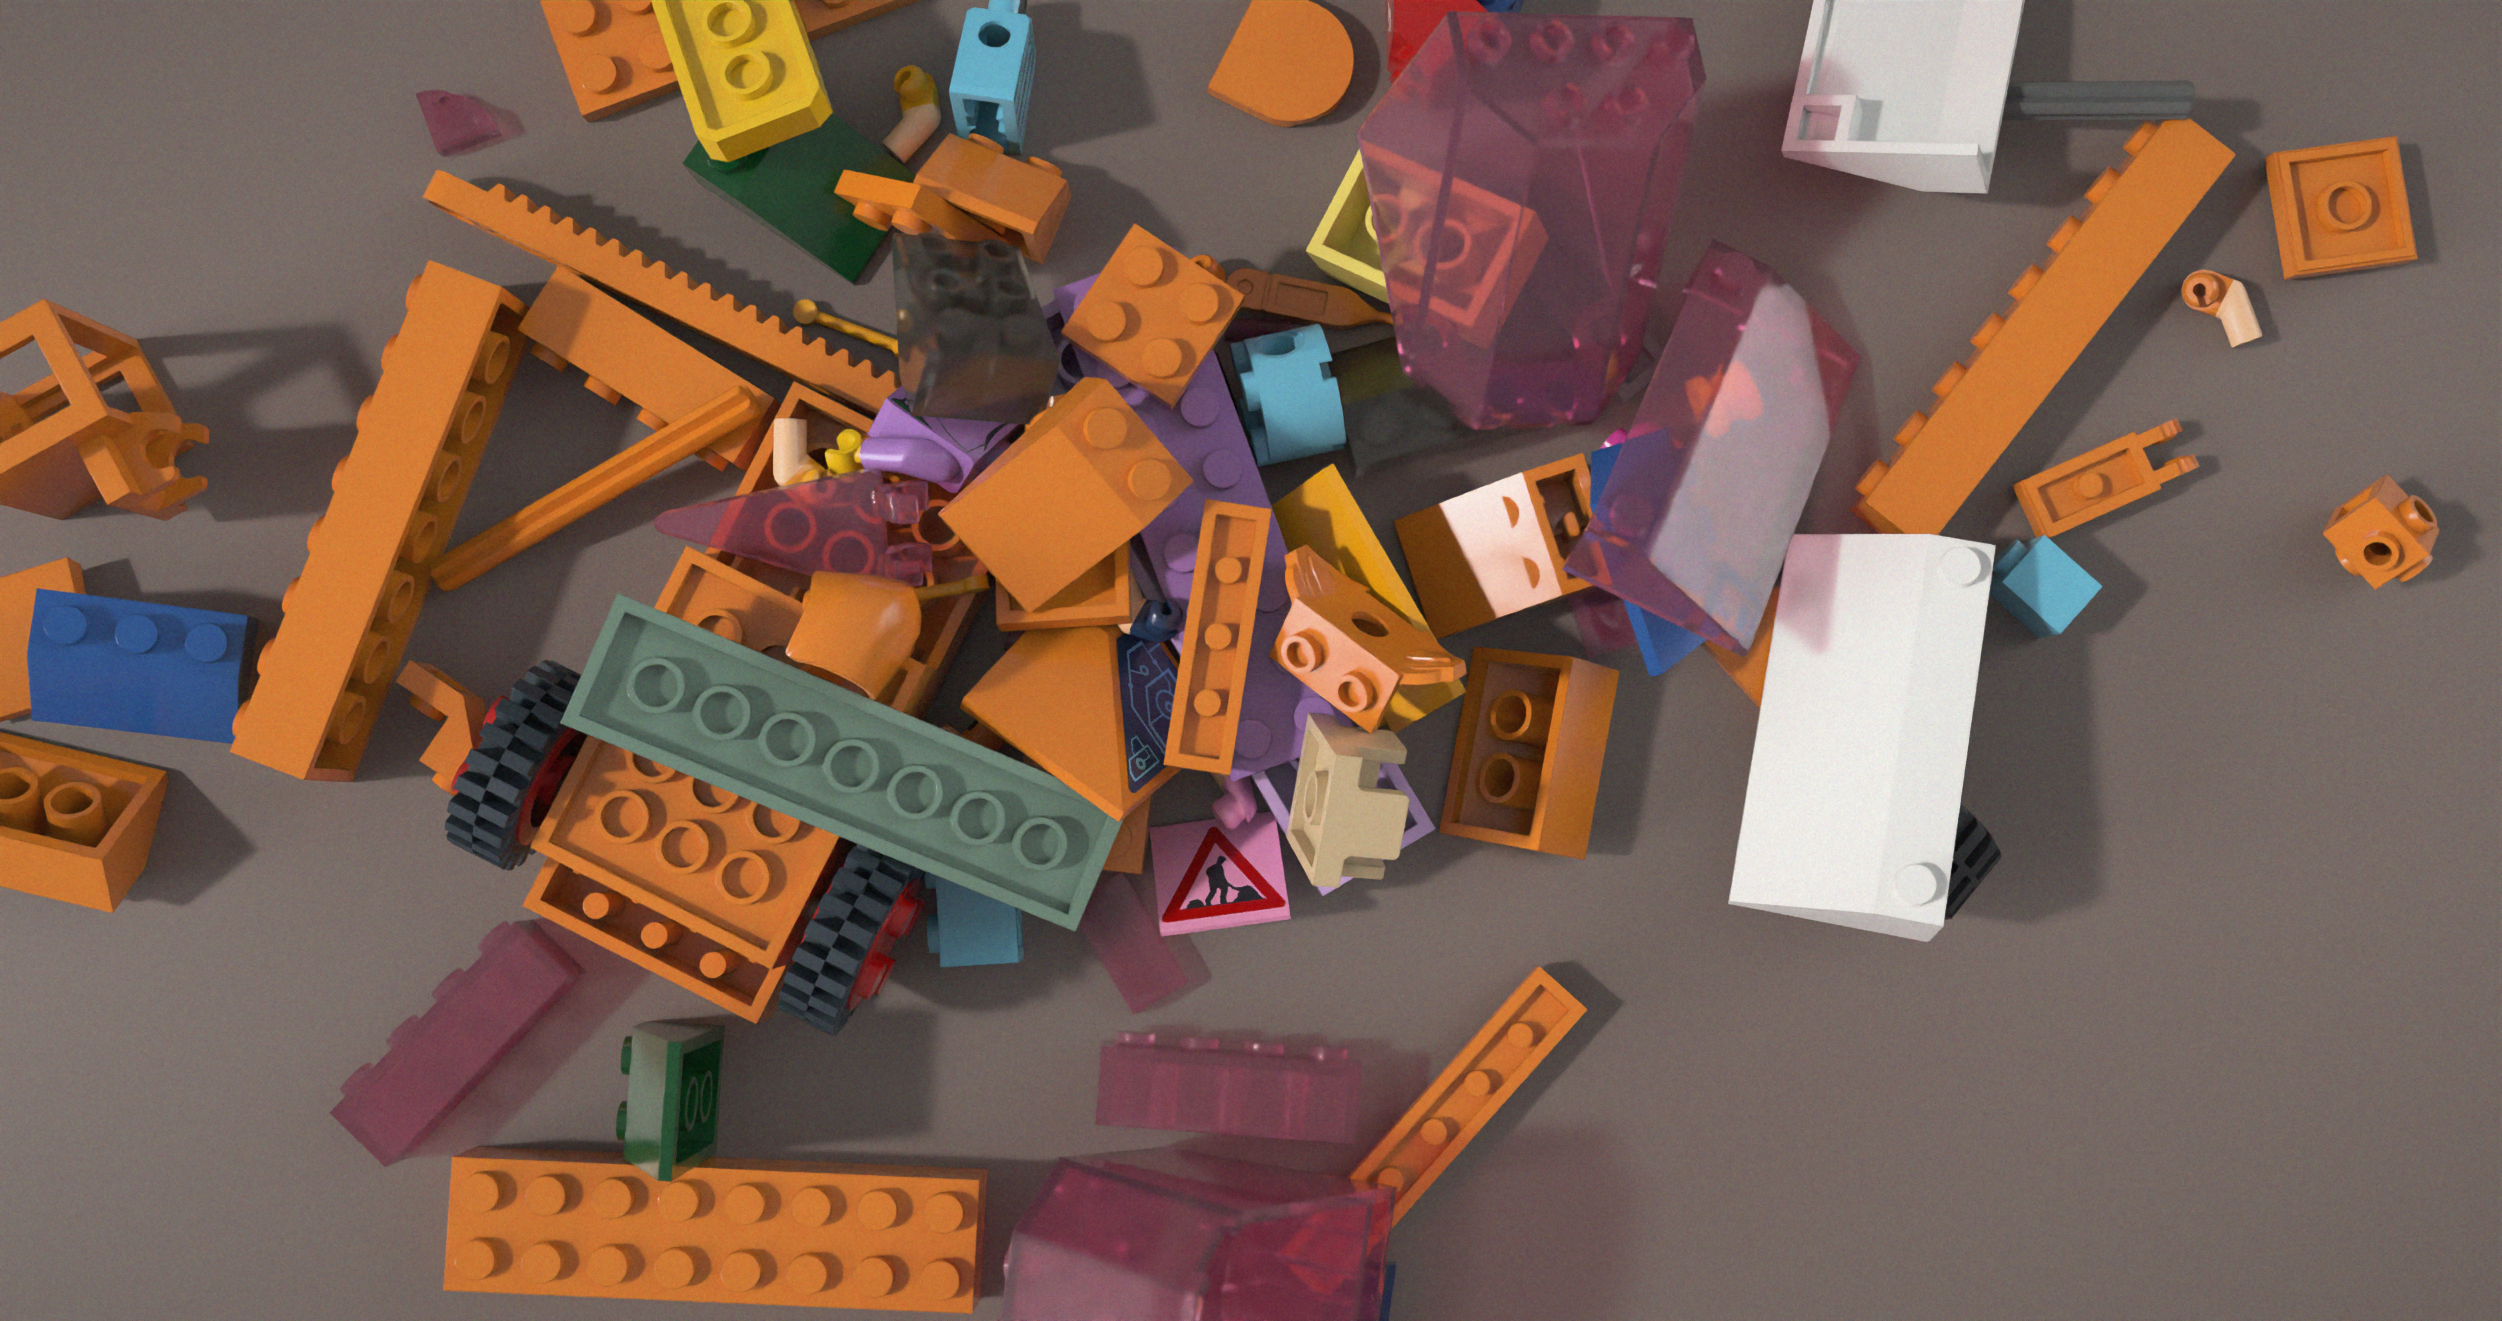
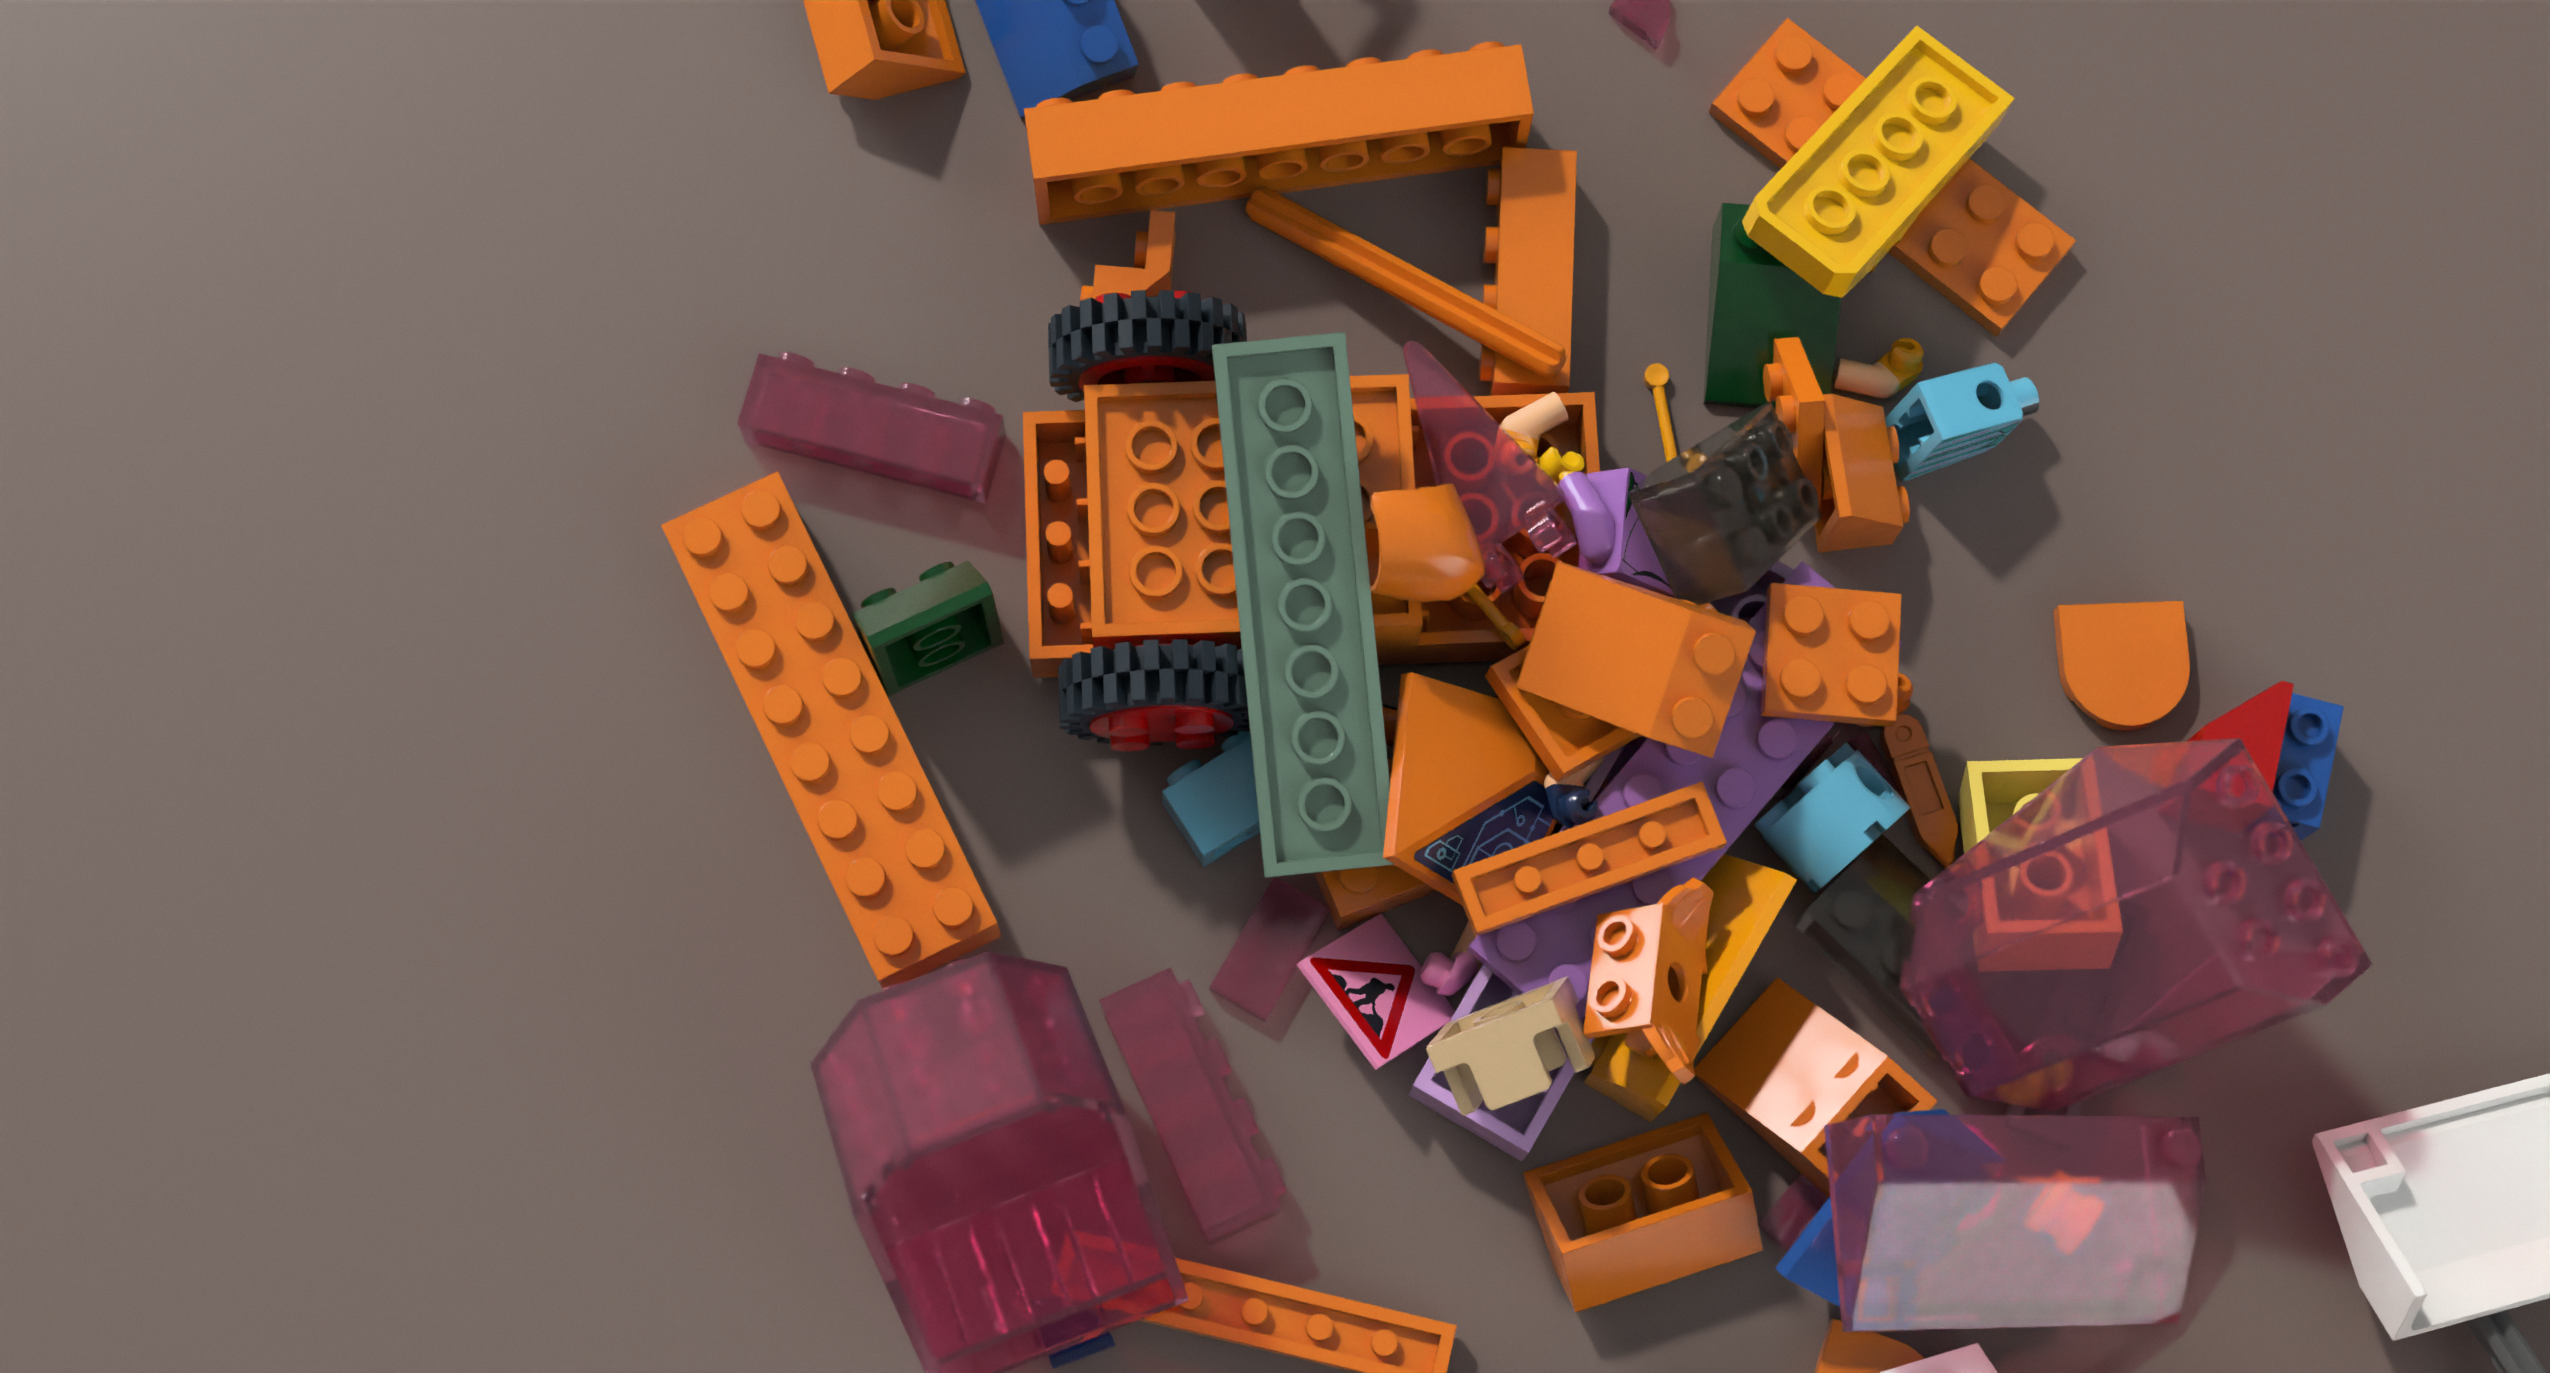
camera: 60 degrees right, 10 degrees down
(664, 292) = (1604, 246): orange gear -> none

